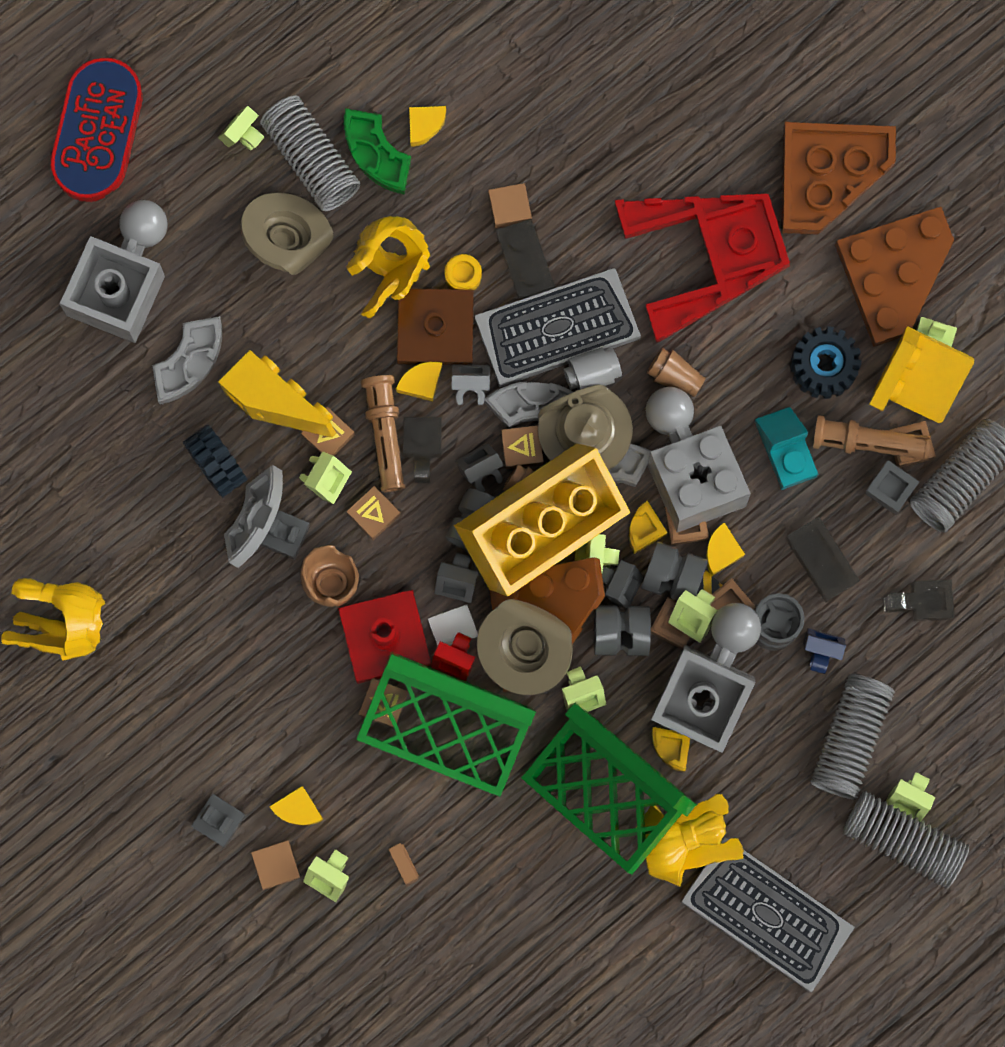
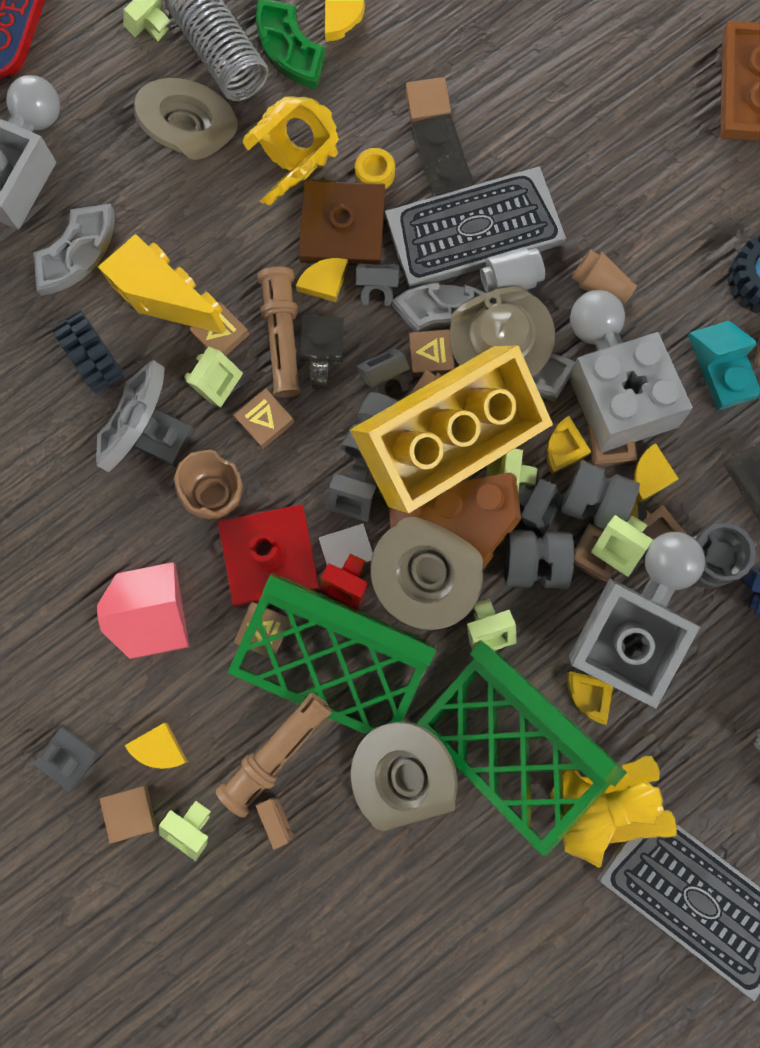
camera: 10 degrees right, 0 degrees up
(277, 690) = (144, 611): none -> coral slope
(389, 821) = (260, 769): none -> medium nougat pin
(511, 821) = (402, 776): none -> dark tan hat
(739, 242) = (675, 140): red wing -> none

